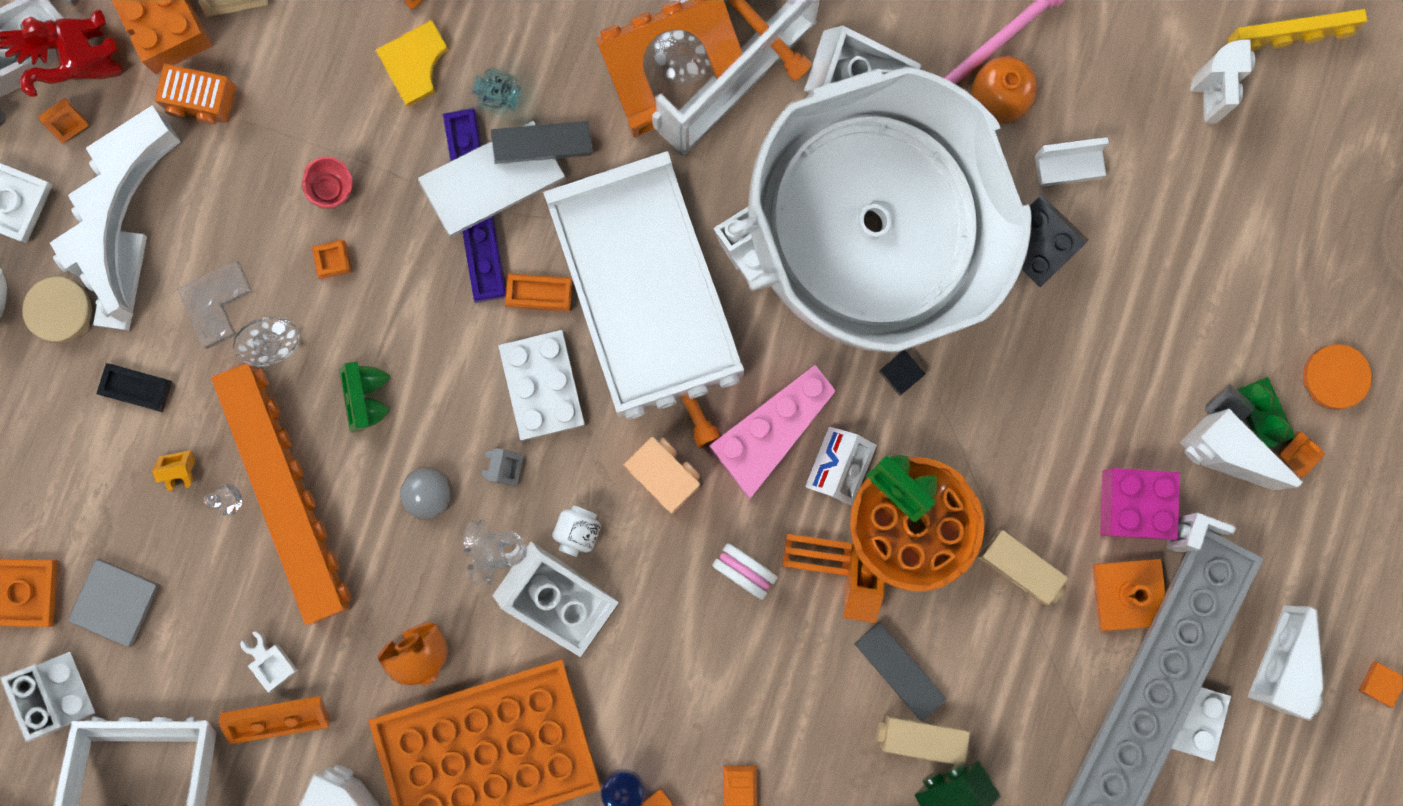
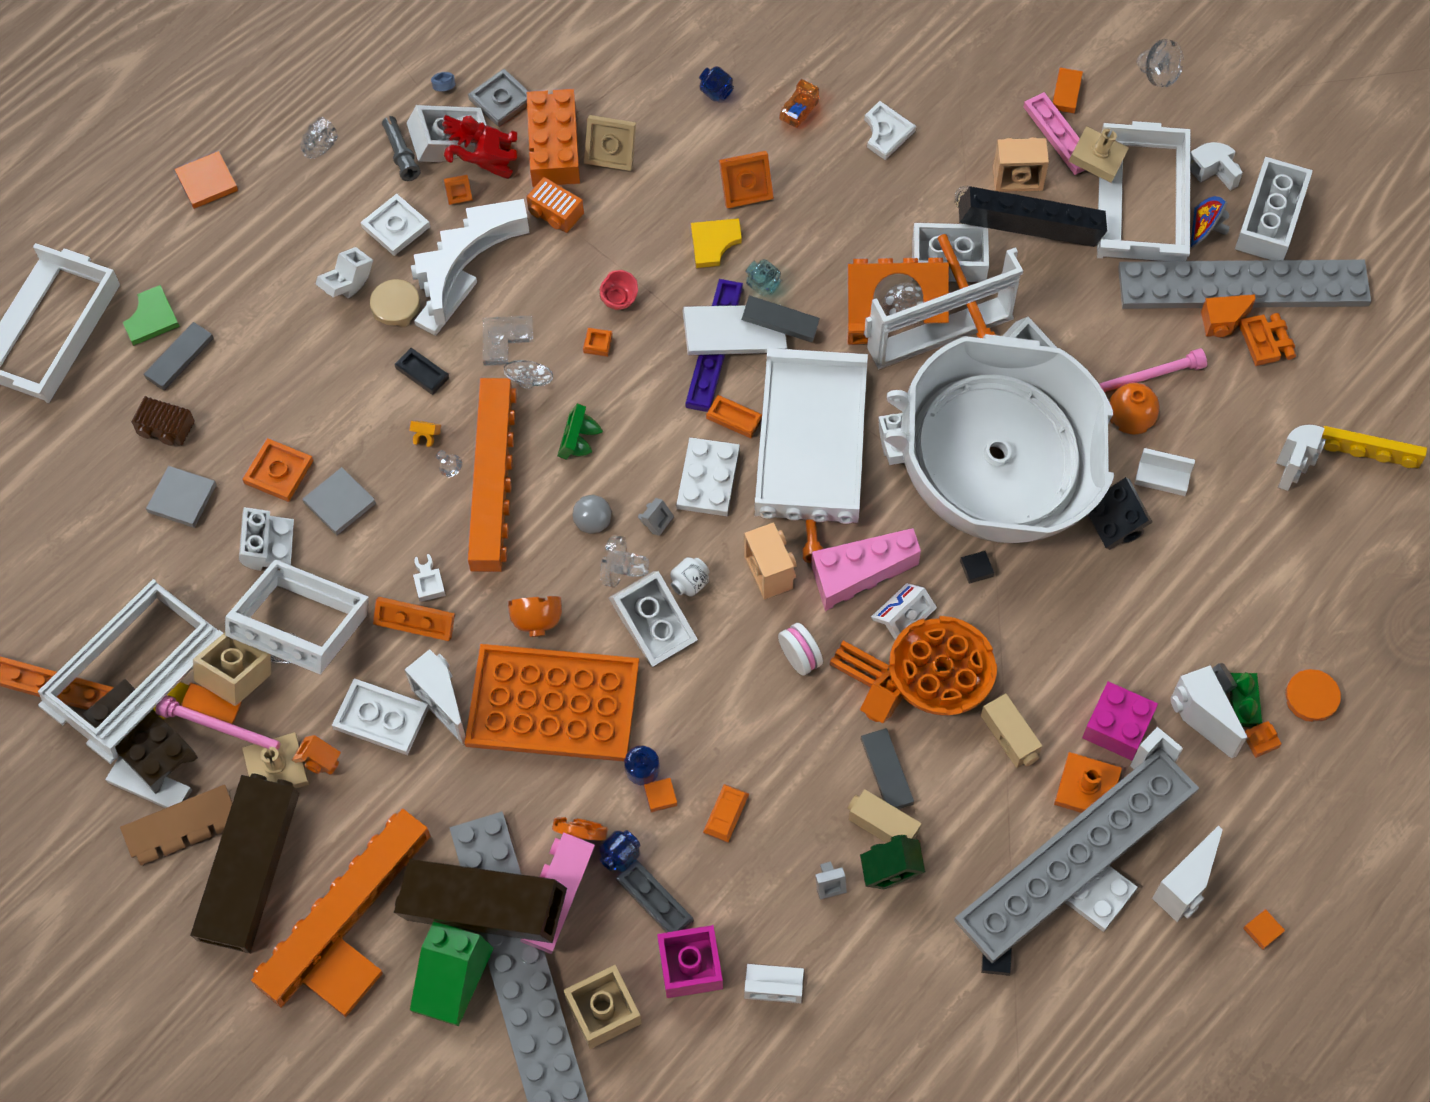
camera: 25 degrees right, 20 degrees down
(910, 495) = (941, 632): green tile -> none

